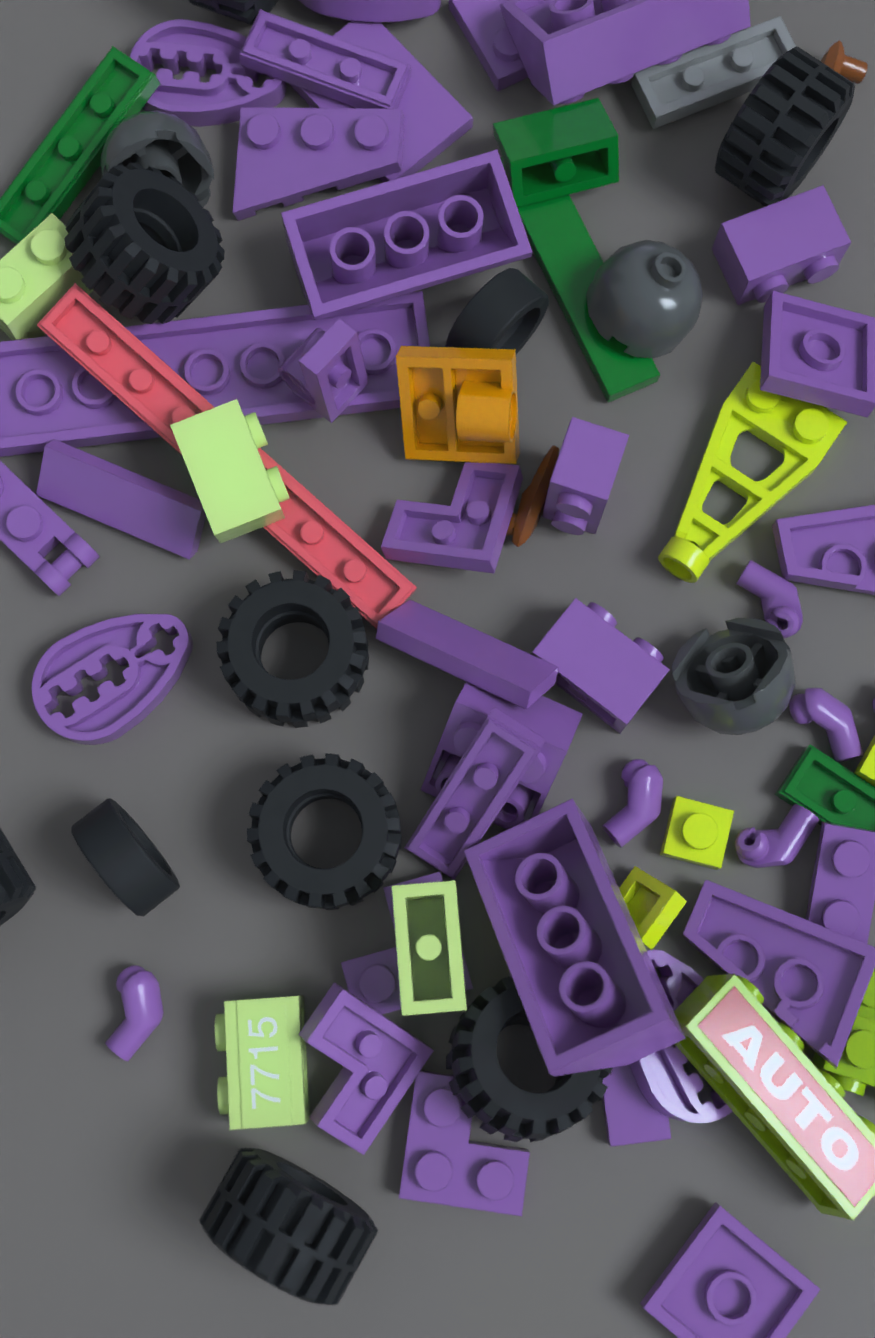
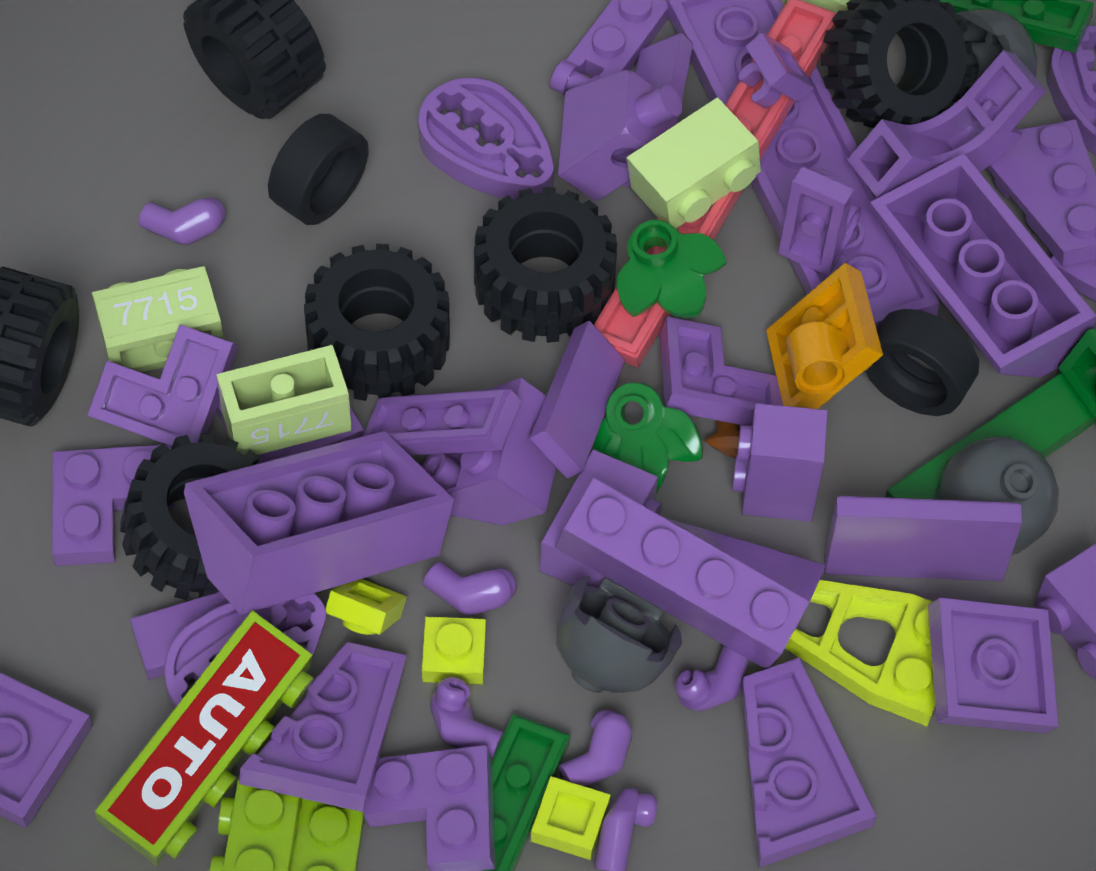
camera: 75 degrees right, 20 degrees down
(140, 357) = (778, 70): none -> medium lavender tile
(152, 542) = (607, 124): none -> medium lavender torso
(245, 218) = (975, 125): none -> medium lavender arch
(345, 527) = (667, 278): none -> green plate
(522, 600) = (656, 439): none -> green plate
(690, 375) = (922, 538): none -> medium lavender tile
(706, 574) = (708, 580): none -> medium lavender wedge

